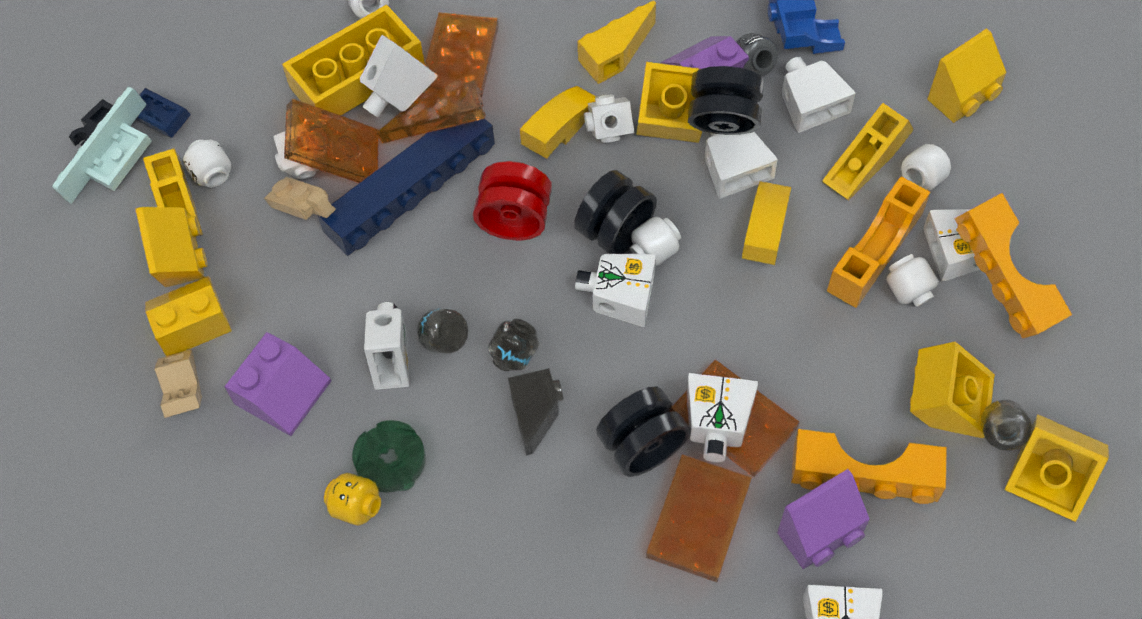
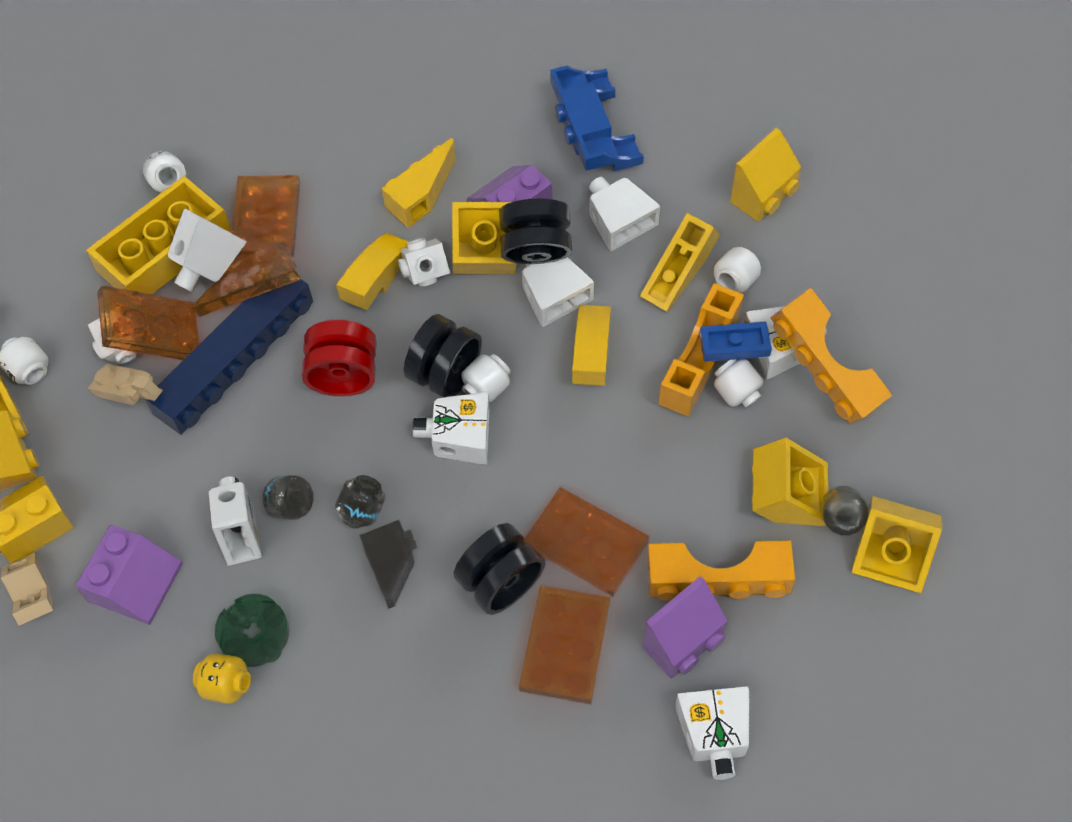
camera: 10 degrees left, 0 degrees up
(719, 412) = (570, 539): white torso -> none
(761, 53) = (563, 176): dark grey head -> none
(915, 238) = (735, 341): none -> blue plate

